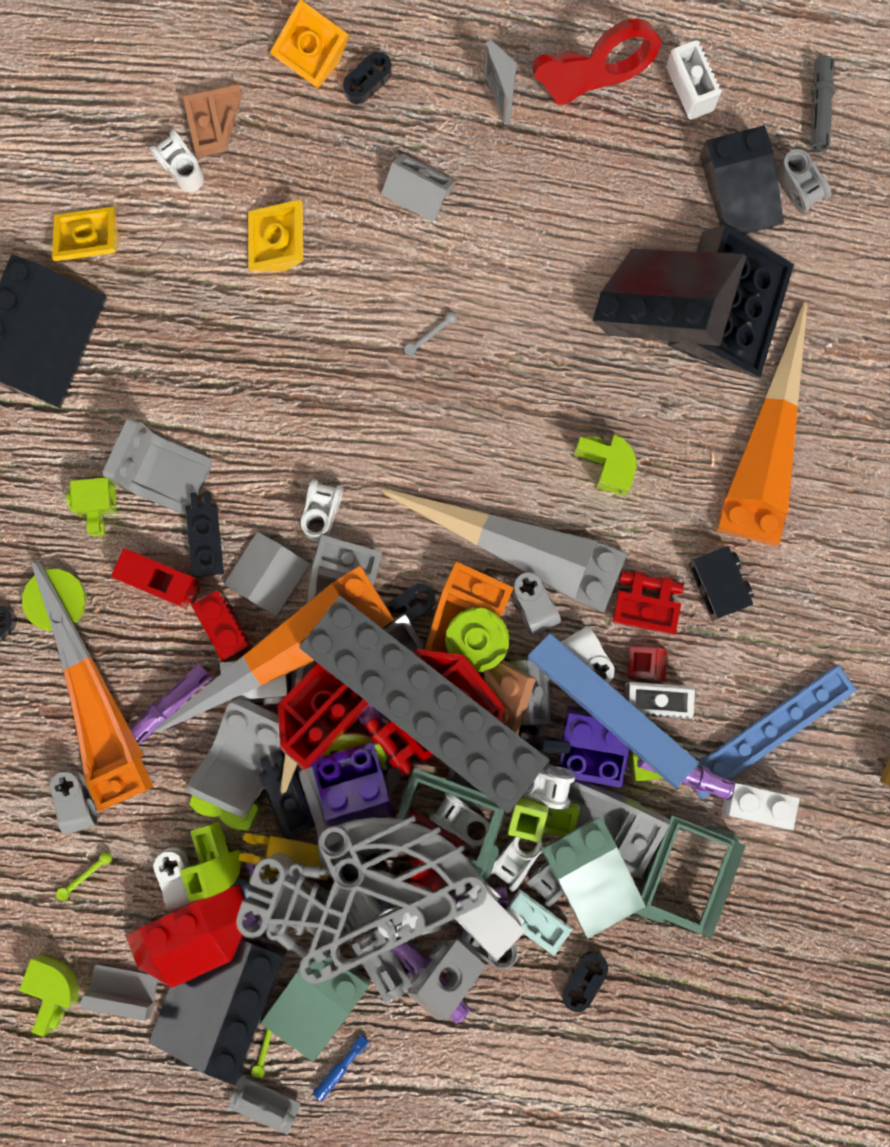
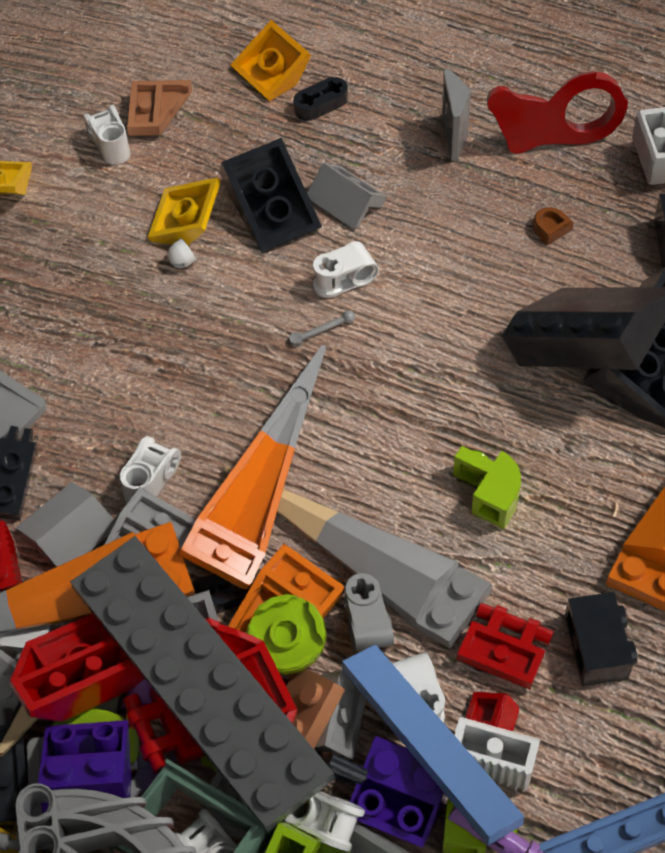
camera: 15 degrees right, 25 degrees down
(284, 284) = (180, 254): none -> white hinge
(350, 205) = (269, 195): none -> black slope
(412, 542) = (239, 518): none -> orange plate
(439, 268) = (346, 267): none -> white piece
(609, 181) = (551, 224): none -> dark orange tile

